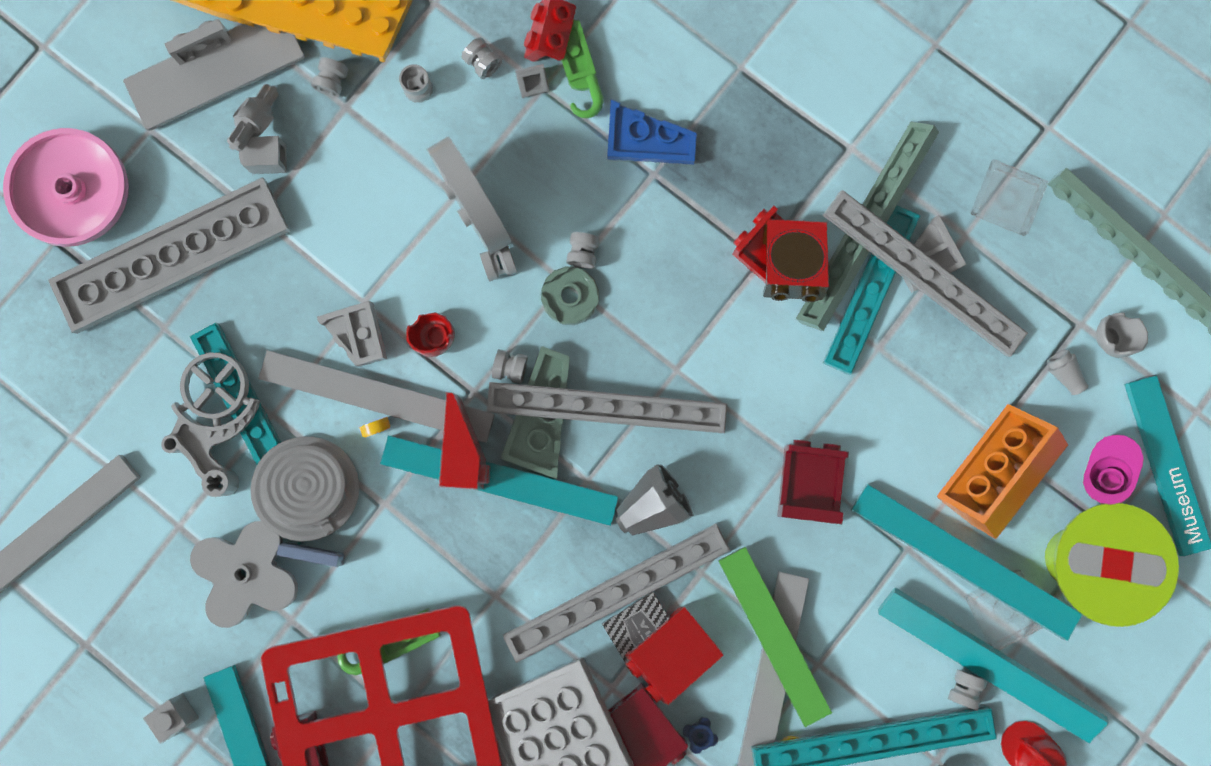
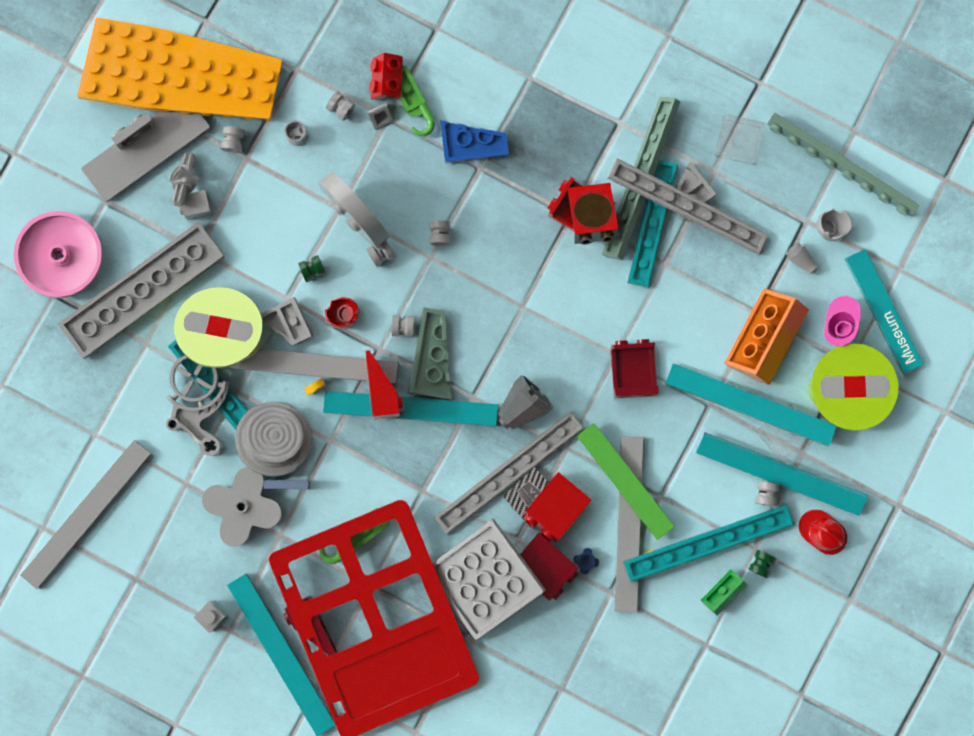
camera: 15 degrees left, 0 degrees up
(257, 325) = (218, 327): none -> yellowish green piece
(398, 267) = (310, 269): none -> dark green wheel
(565, 312) = (432, 255): sand green tile -> none
(606, 407) = (478, 342): light grey tile -> none

